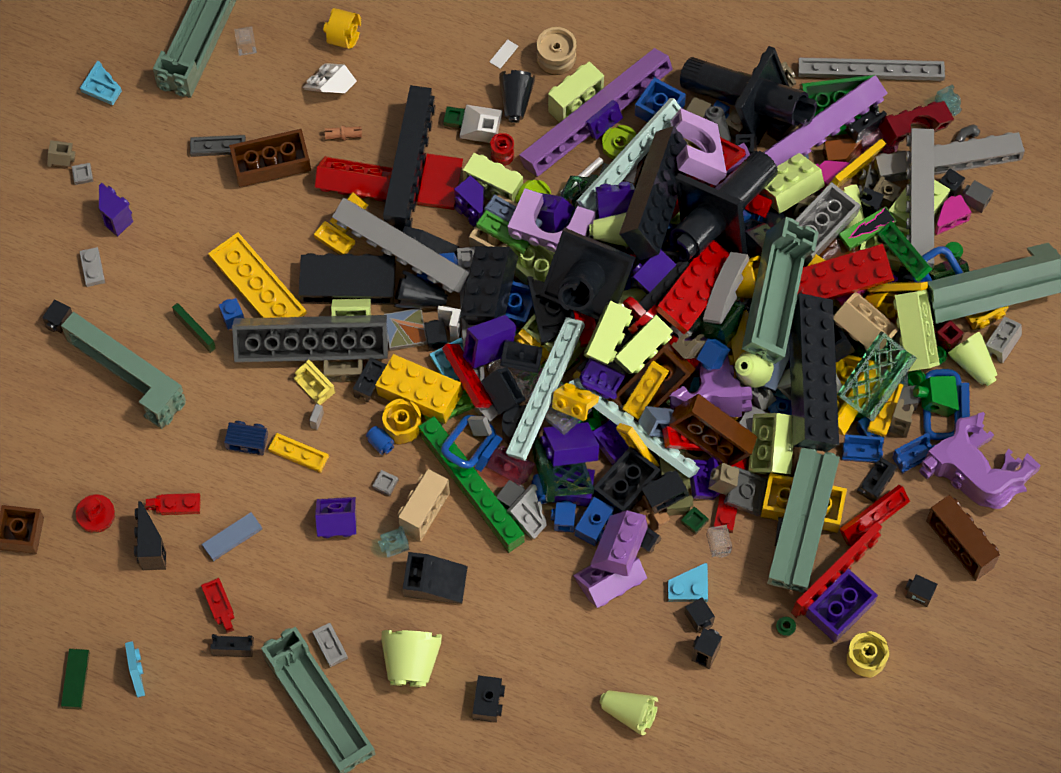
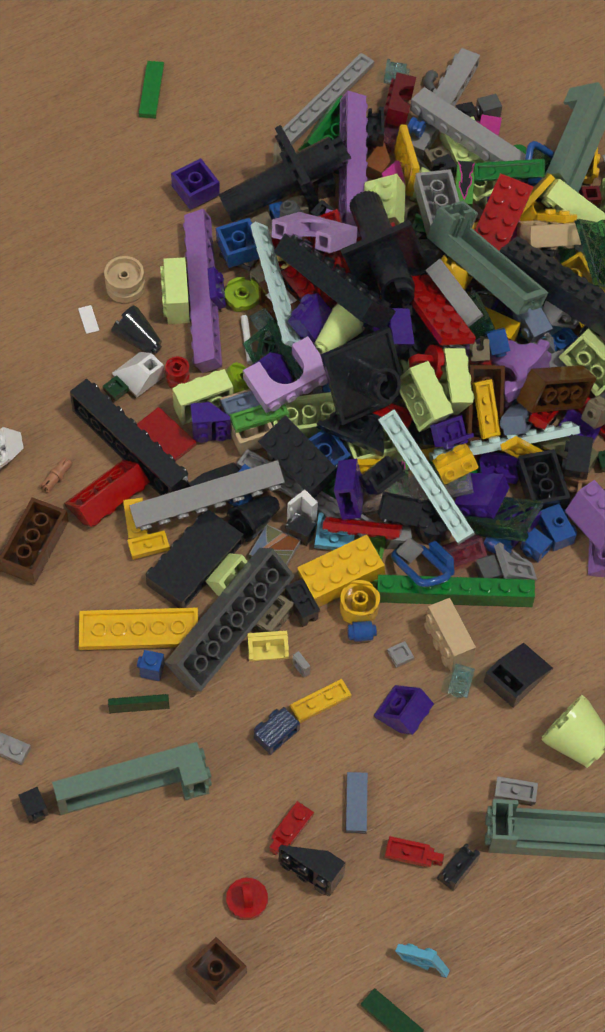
camera: 55 degrees left, 5 degrees down
(693, 34) = (195, 183): none -> dark purple brick
(753, 370) = (526, 327): yellowish green cone -> none
(886, 318) = (562, 216): none -> yellow plate
(894, 153) = (416, 127): none -> blue wheel

